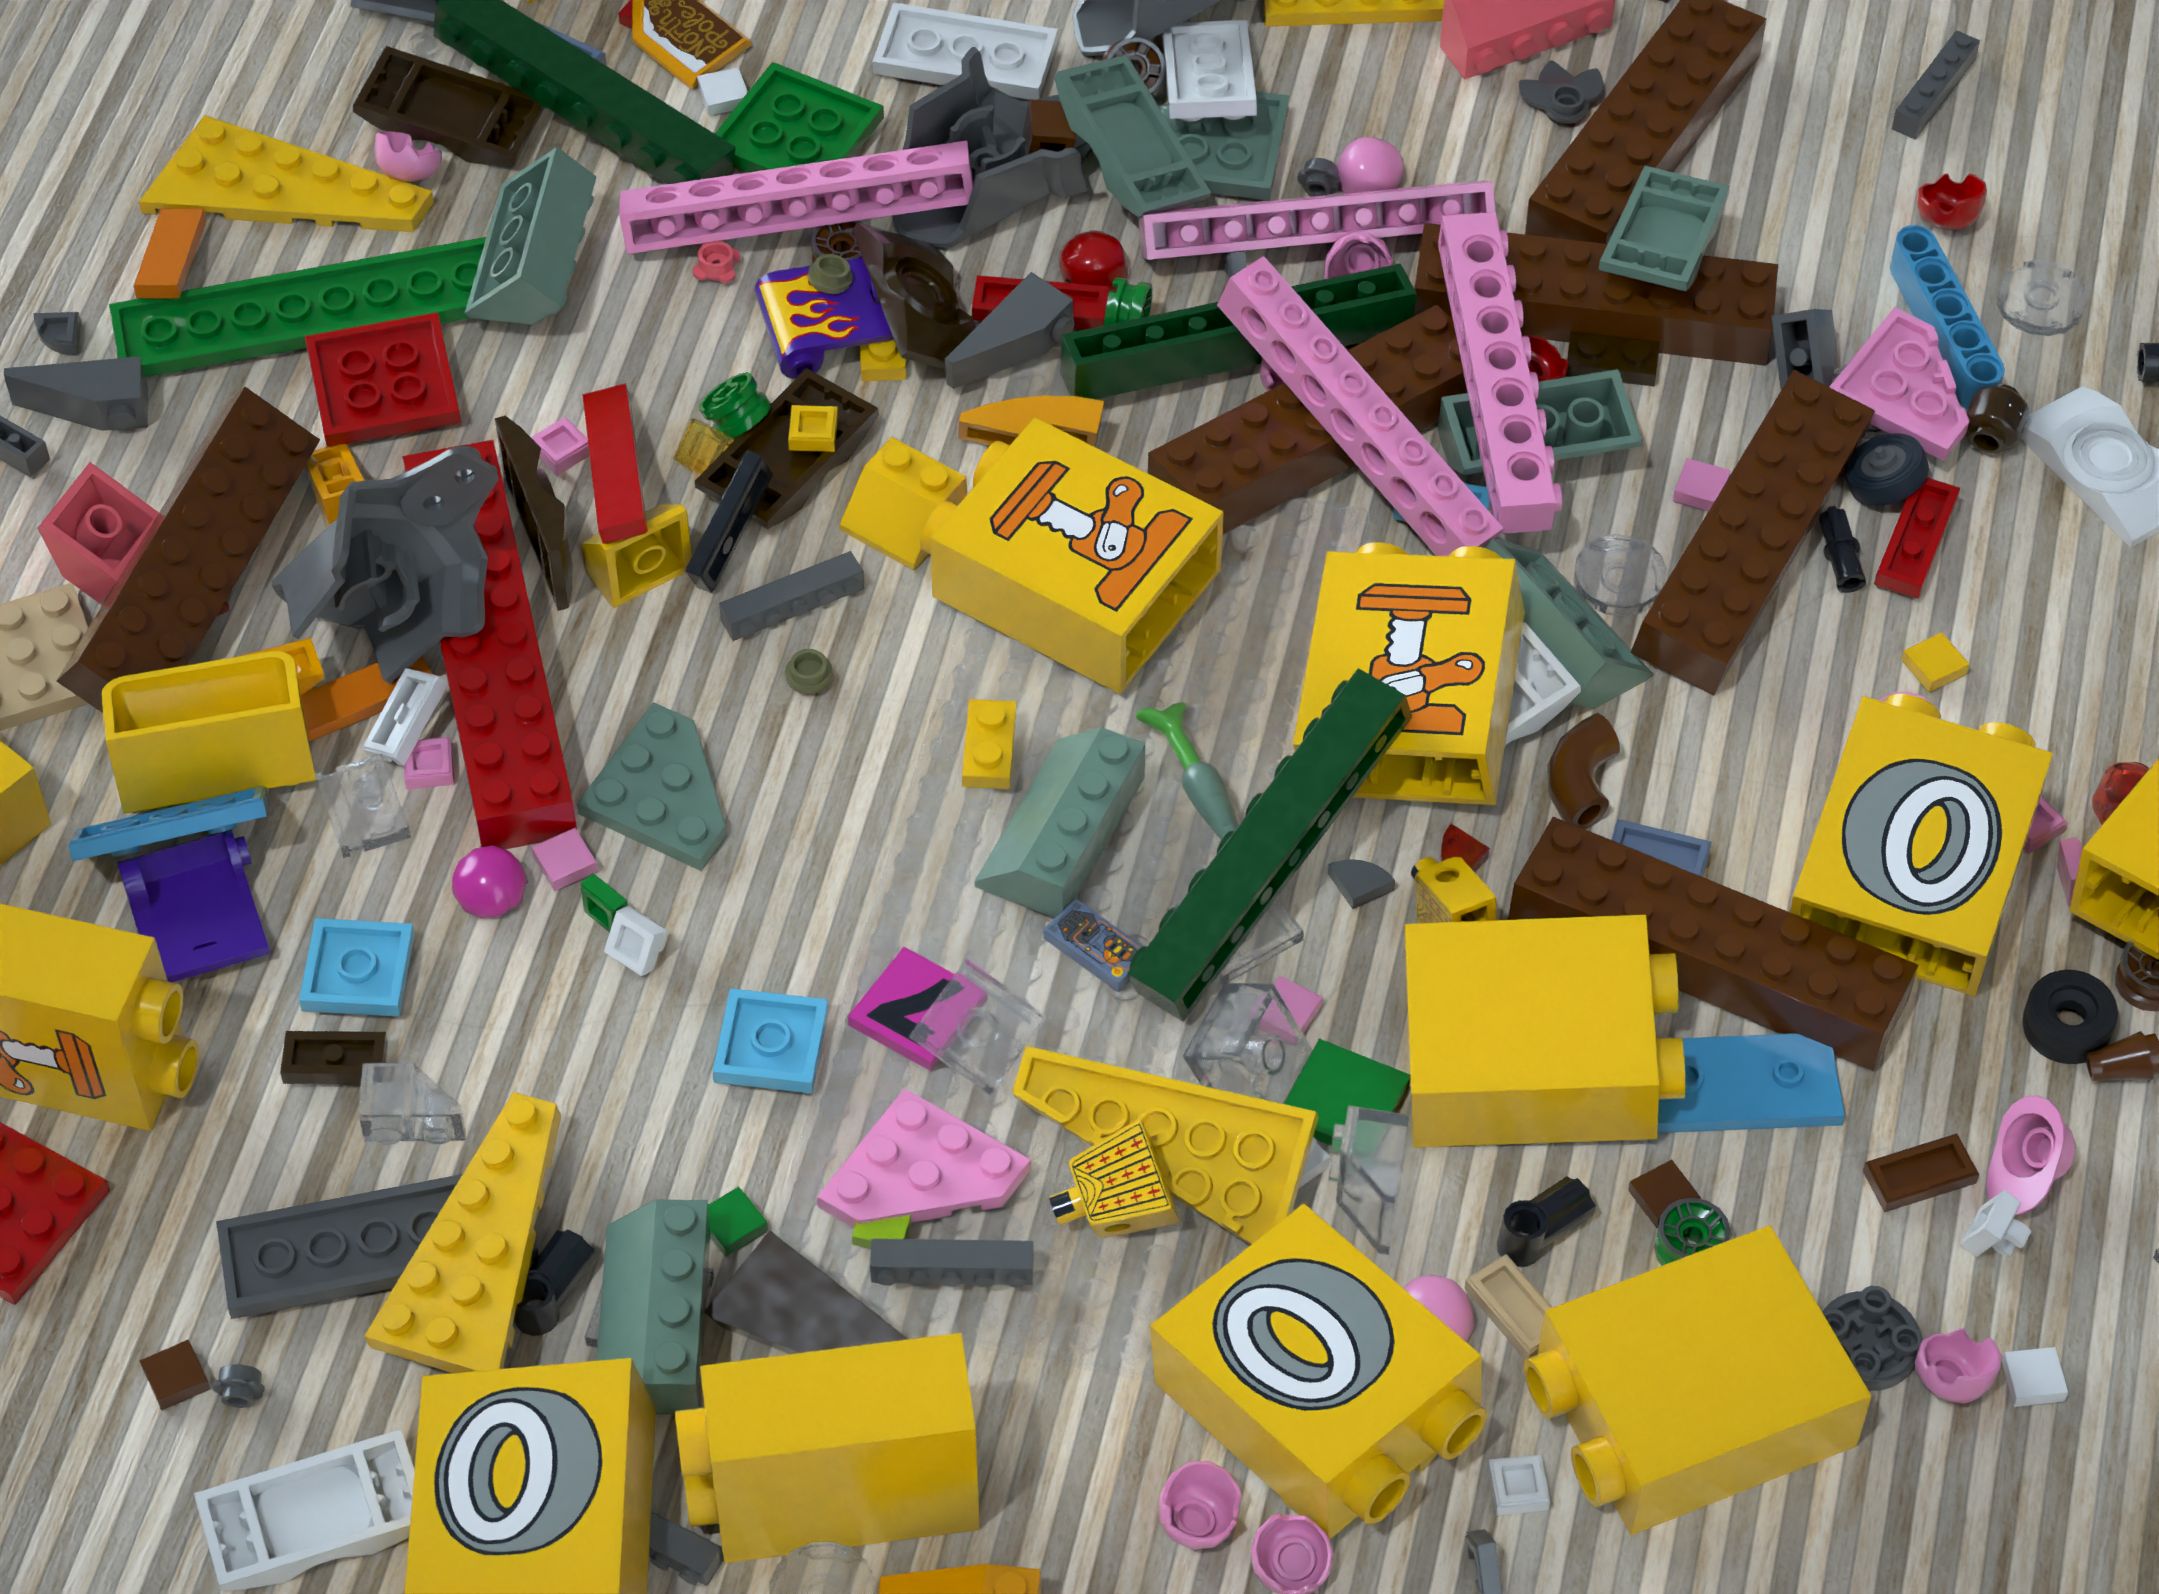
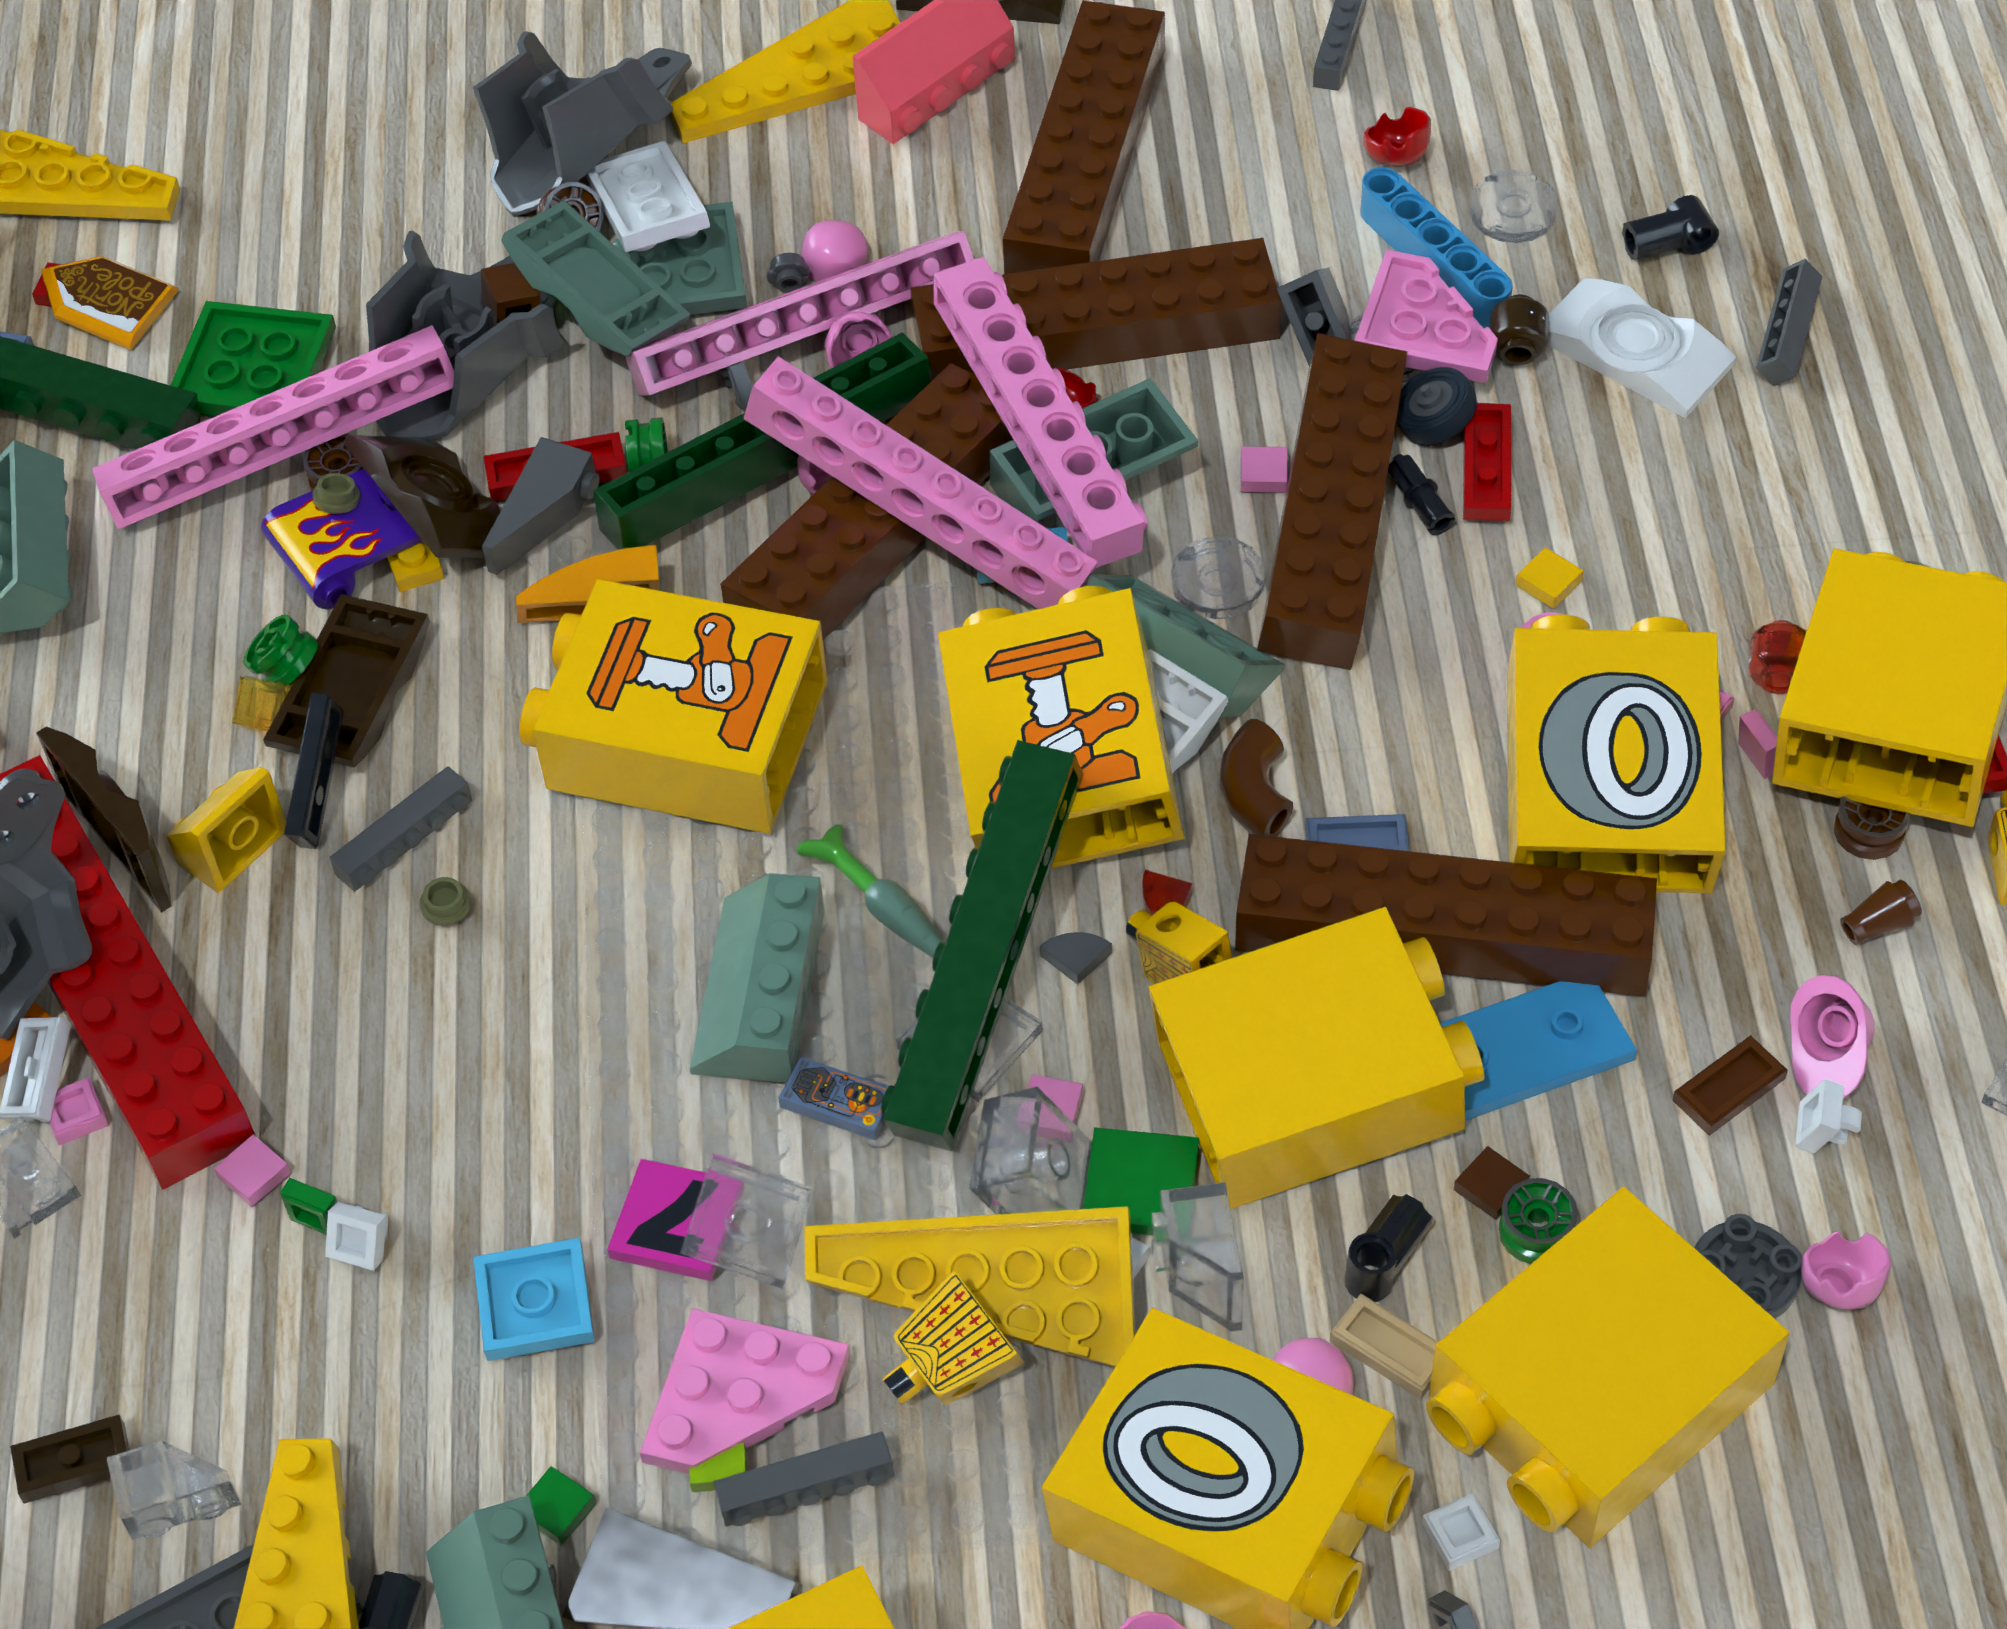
camera: 15 degrees left, 0 degrees up
(357, 967) = (66, 1353): medium azure plate -> none
(489, 882) = (179, 1219): dark pink hair -> none
(562, 445) = (113, 741): bright pink tile -> none
(614, 464) = (176, 745): red tile -> none
(660, 790) = (329, 1069): sand green plate -> none
(716, 262) = (213, 513): coral plate -> none
(721, 90) = (162, 343): white tile -> none
(813, 428) = (368, 652): yellow tile -> none
(897, 498) = (481, 702): yellow slope -> none
(931, 43) = (369, 241): white plate -> none
(989, 744) = (656, 923): yellow plate -> none
(1093, 259) = (593, 410): red hair -> none
(1562, 94) = (993, 134): dark grey plate -> none
(1599, 353) = (1128, 367): dark brown plate -> none
(1665, 228) = (1147, 231): sand green slope -> none
(2034, 1376) = (1920, 1258): white tile -> none
(2077, 992) = (1816, 861): black tyre -> none

